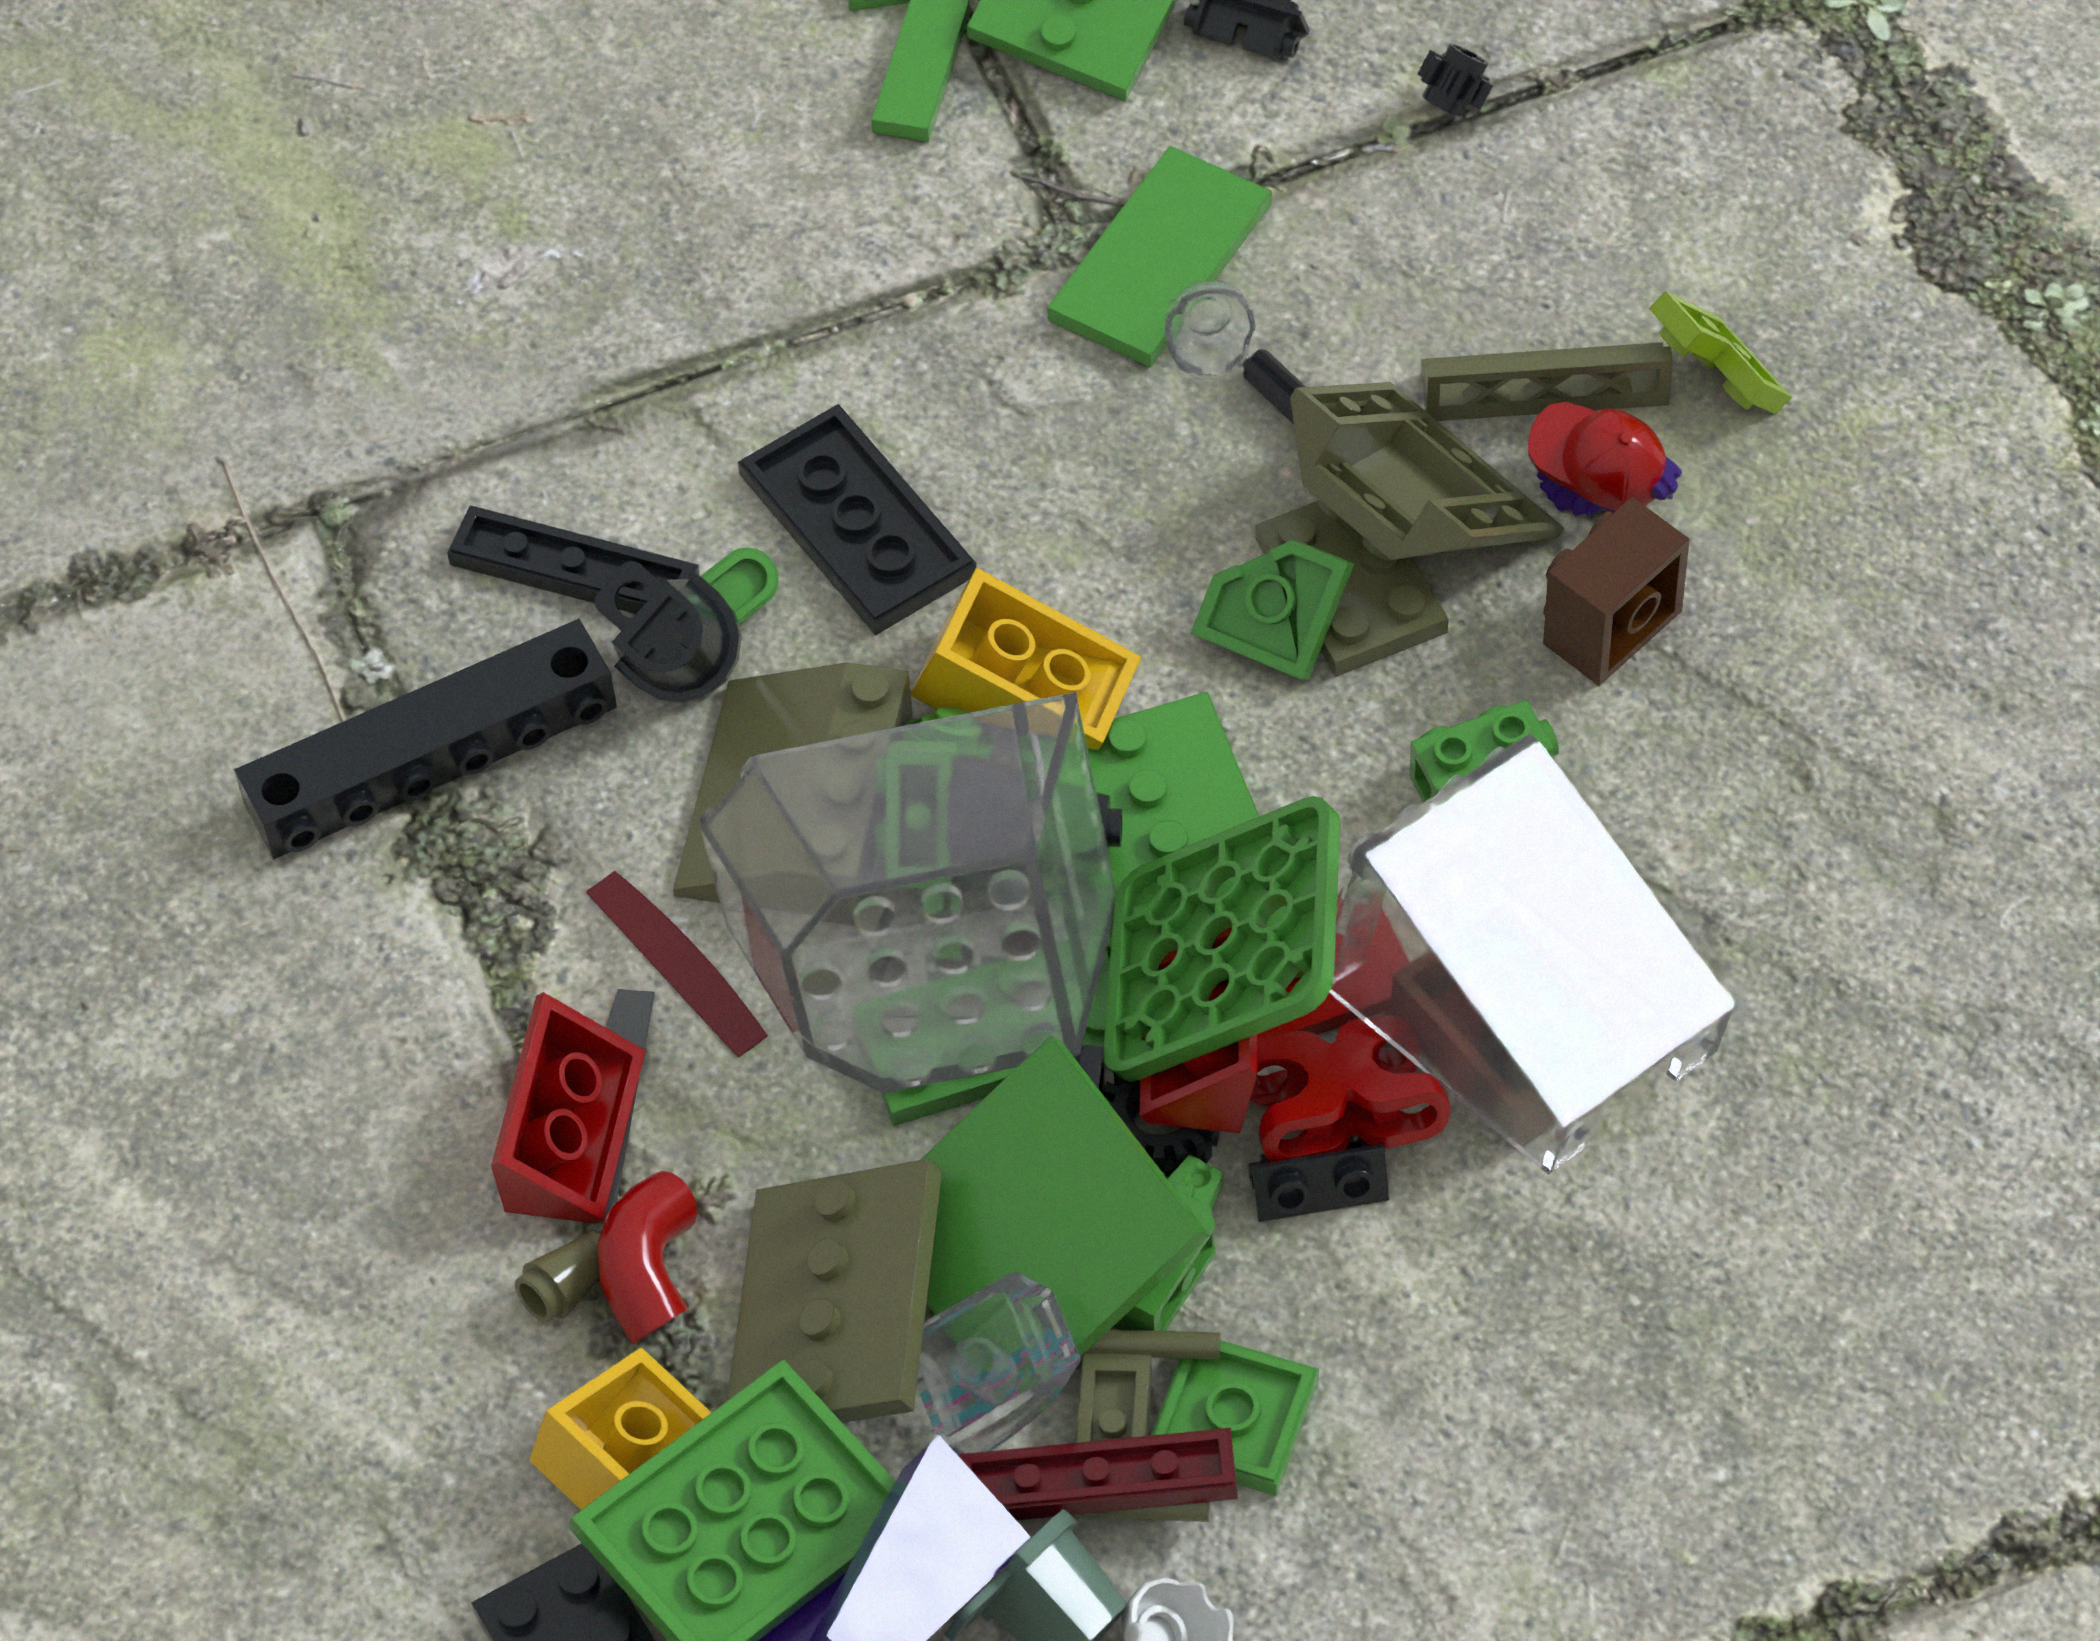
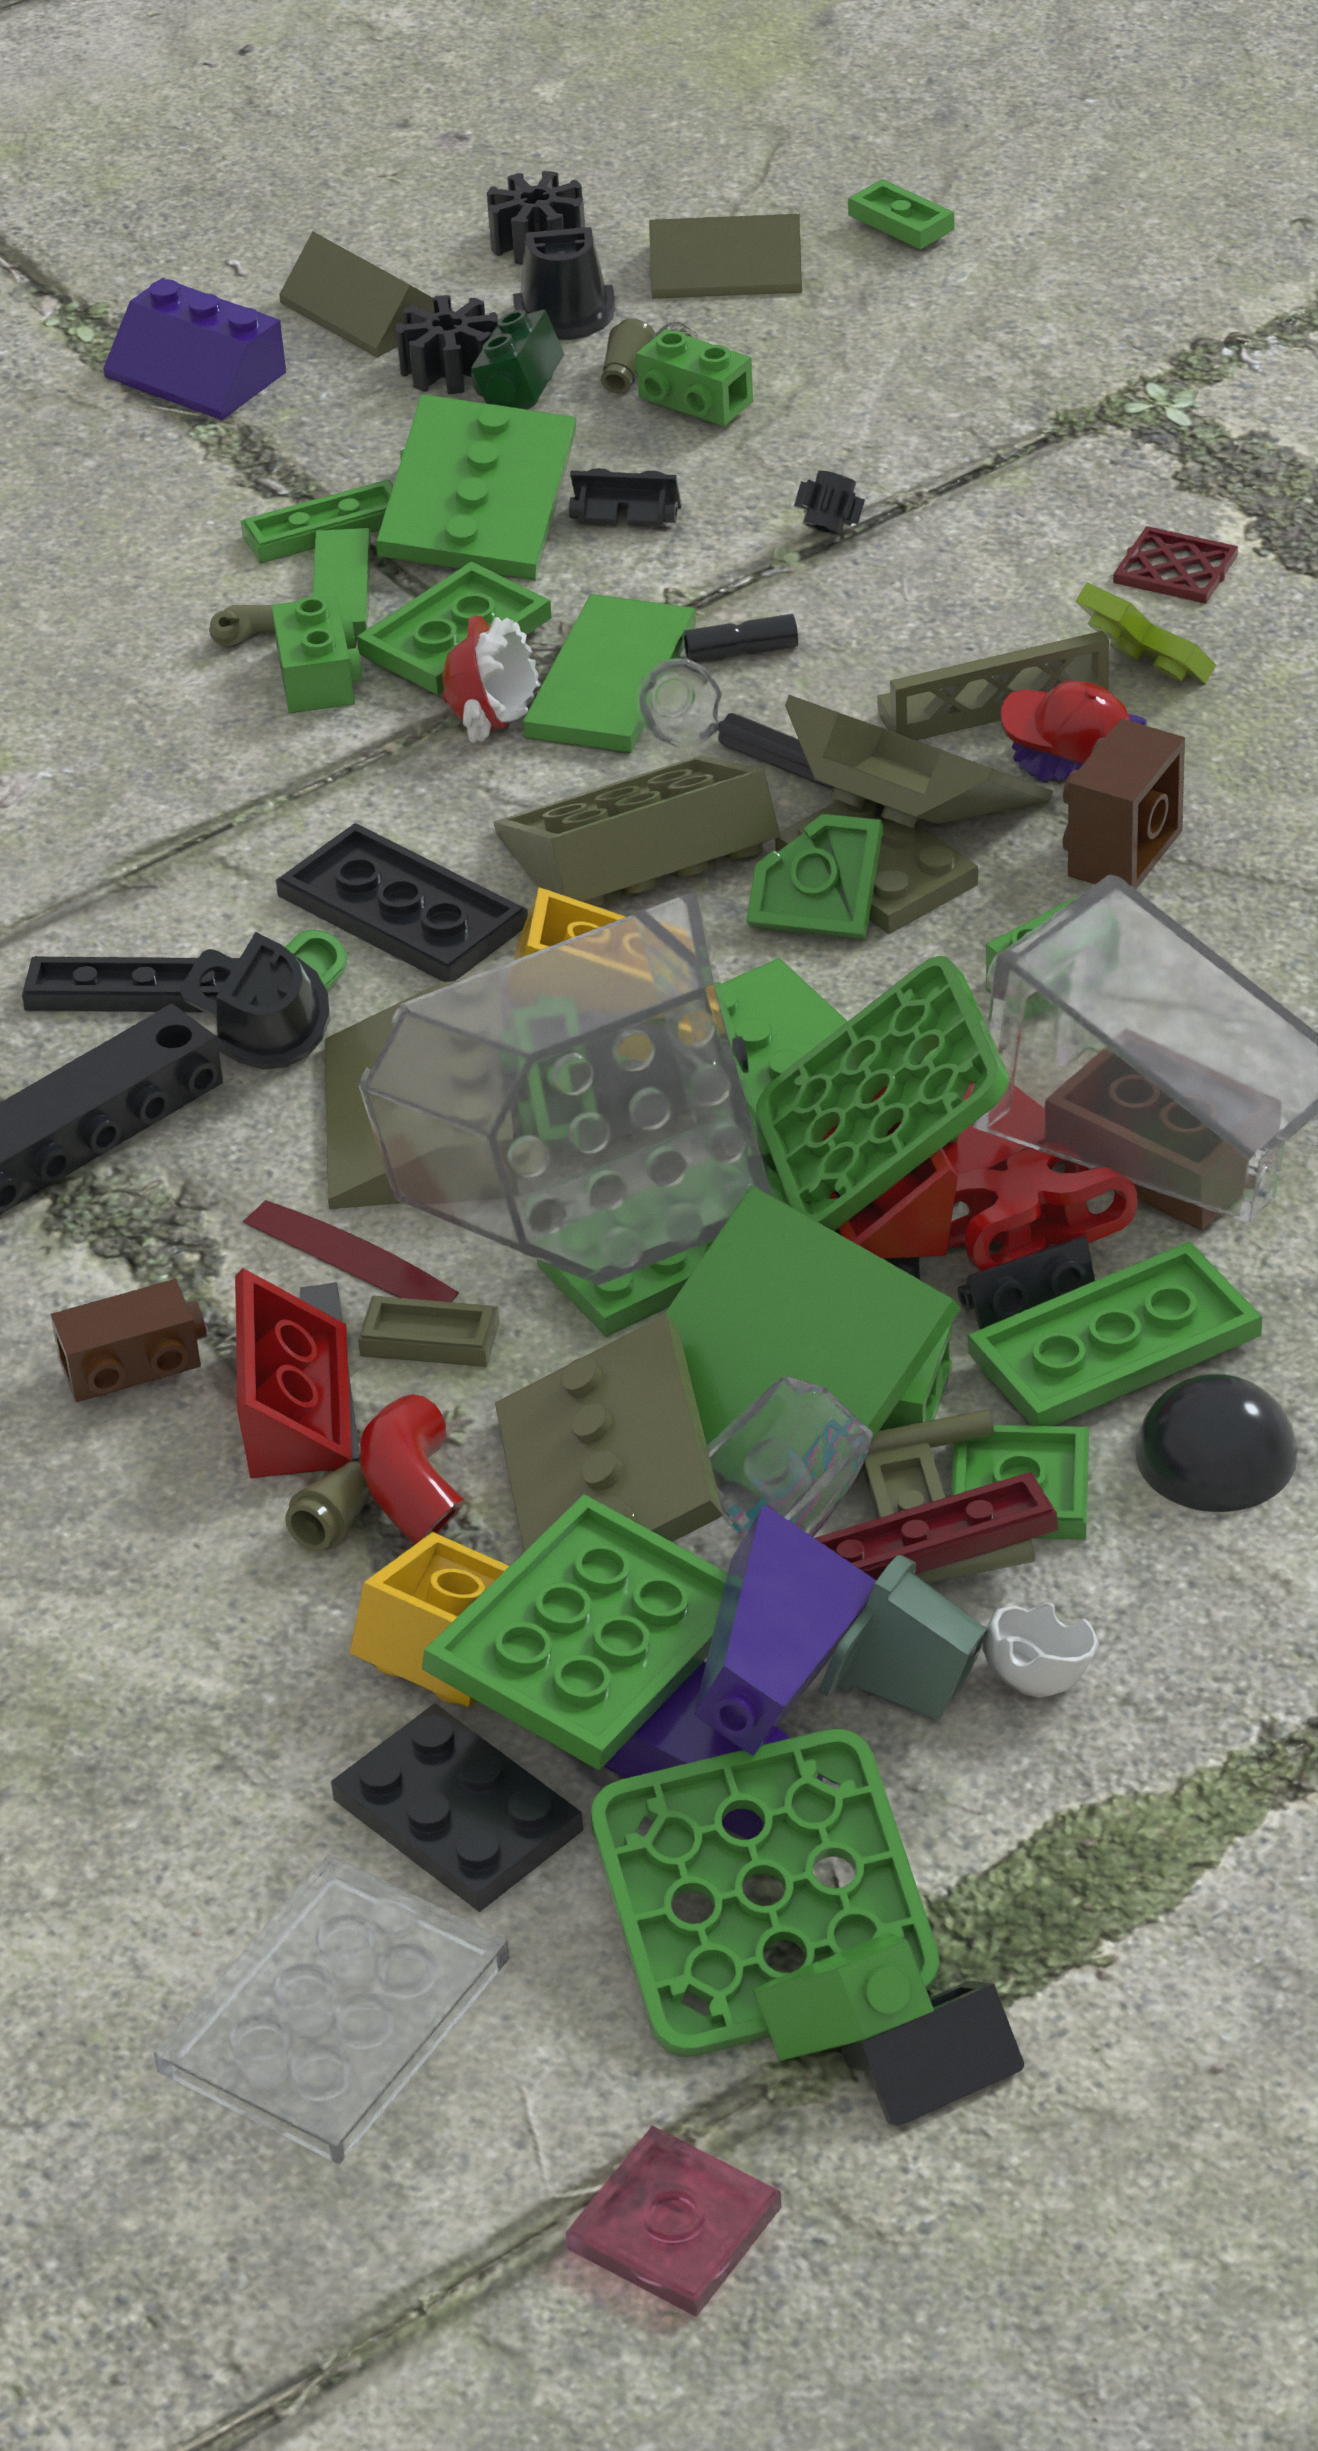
camera: 15 degrees left, 15 degrees down
(424, 1030) = (128, 1339): none -> reddish brown brick
(722, 1079) = (429, 1331): none -> olive tile
(806, 95) = (240, 623): none -> olive arm
(861, 165) = (316, 653): none -> bright green brick
(1016, 159) = (429, 626): none -> bright green plate
(1026, 247) = (490, 677): none -> white hair
(1119, 484) = (643, 829): none -> olive slope
(1314, 242) = (747, 637): none -> black piece
(1381, 1263) = (1114, 1335): none -> bright green plate
(1438, 1422) = (1216, 1444): none -> black piece
(1781, 269) = (1174, 585): none -> dark red window

